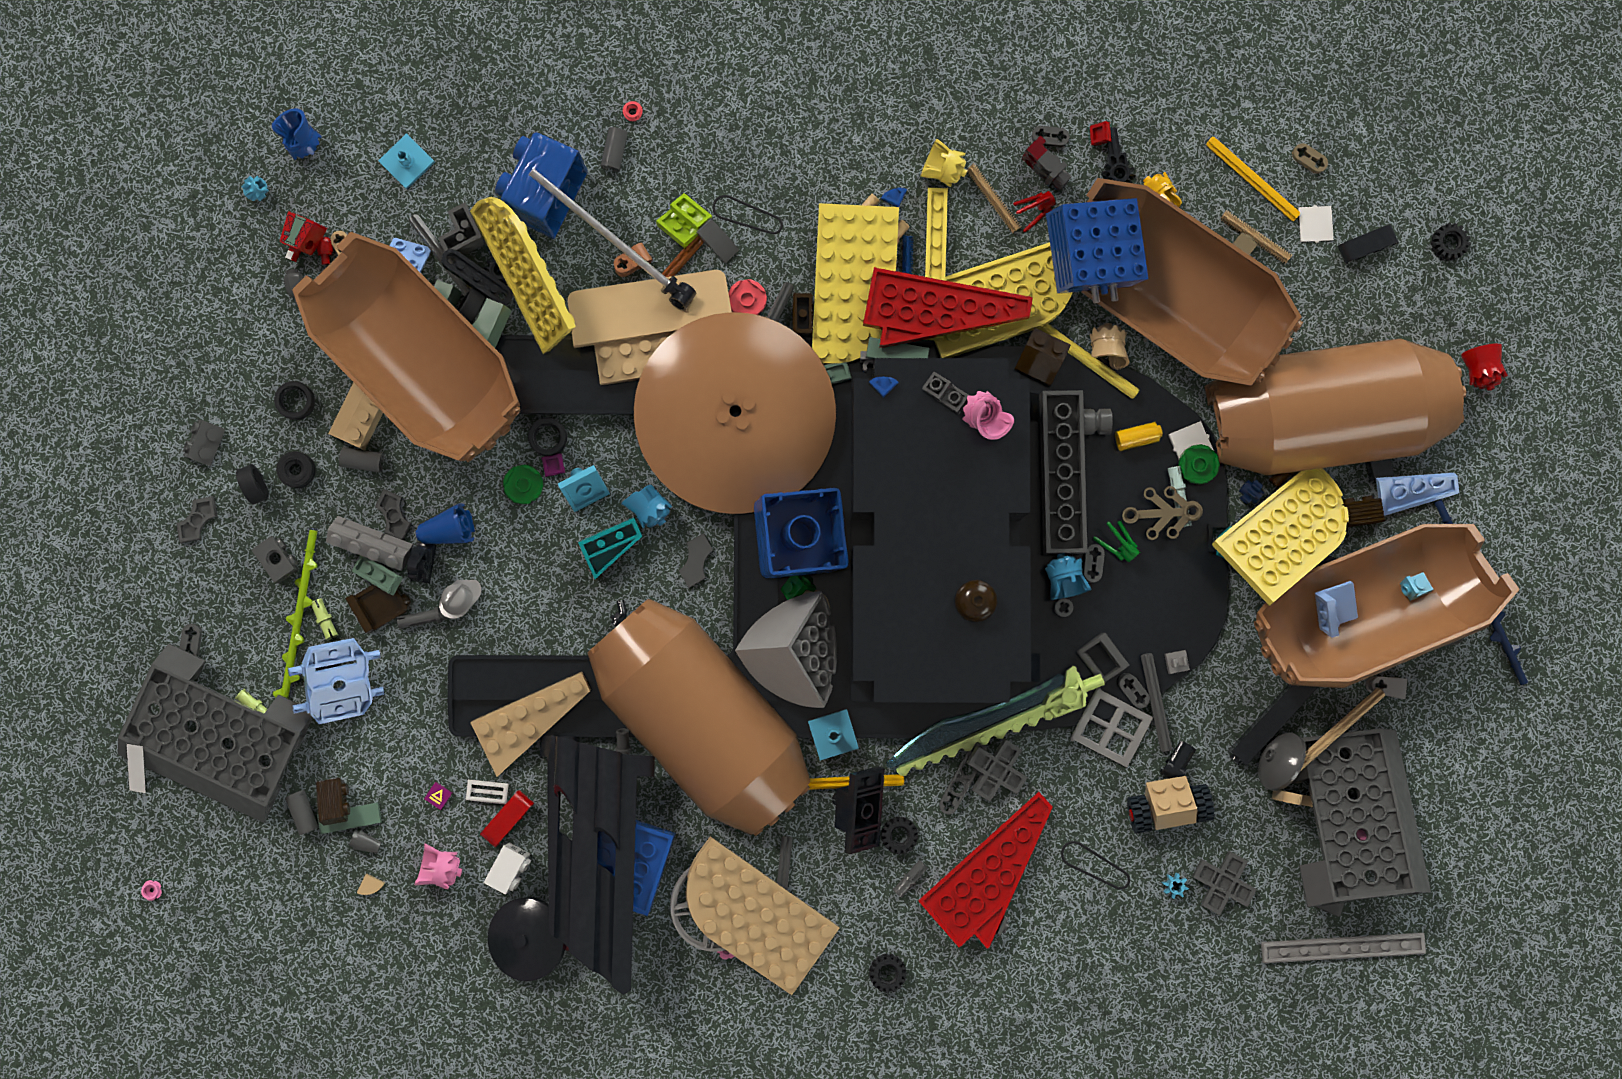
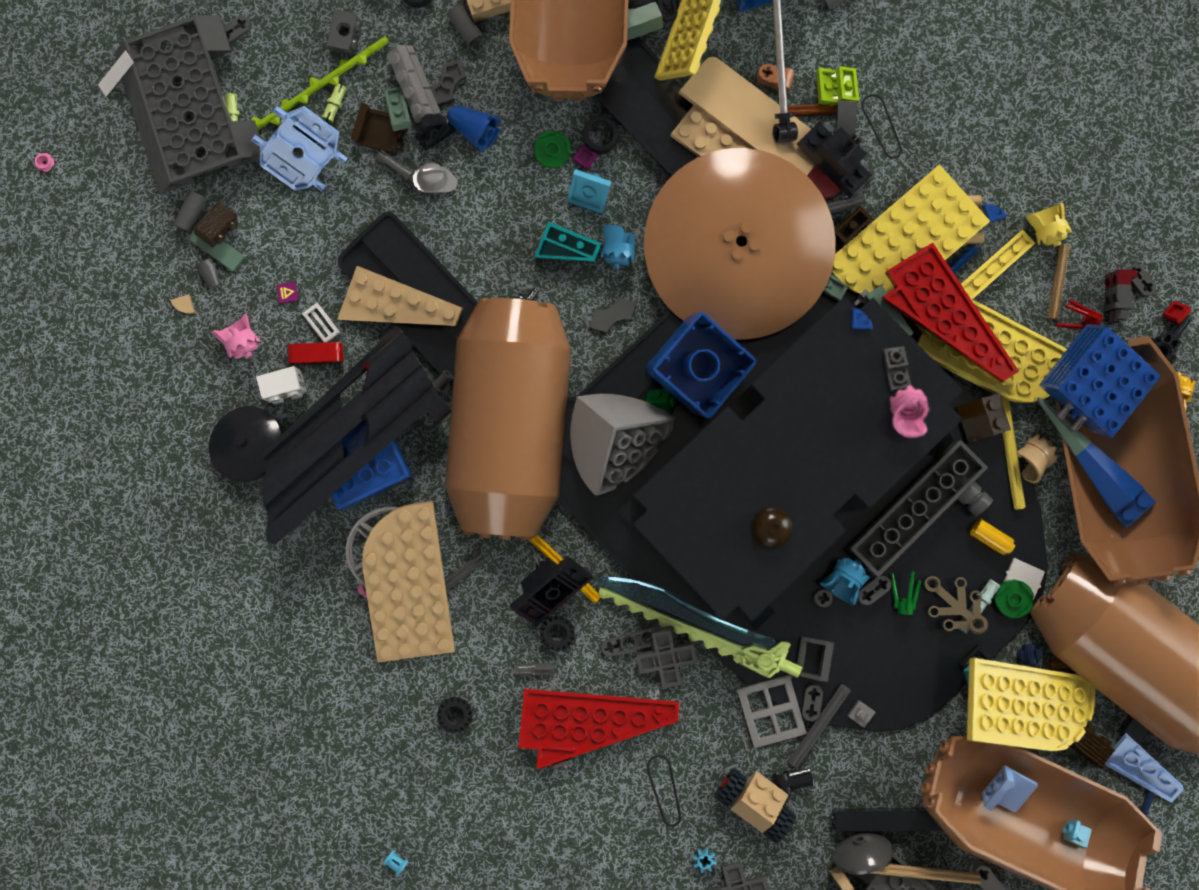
camera: 45 degrees right, 0 degrees up
(739, 275) = (837, 157): none -> black brick
(833, 734) = (583, 521): medium azure tile -> none
(1189, 309) = (1118, 489): none -> blue plate

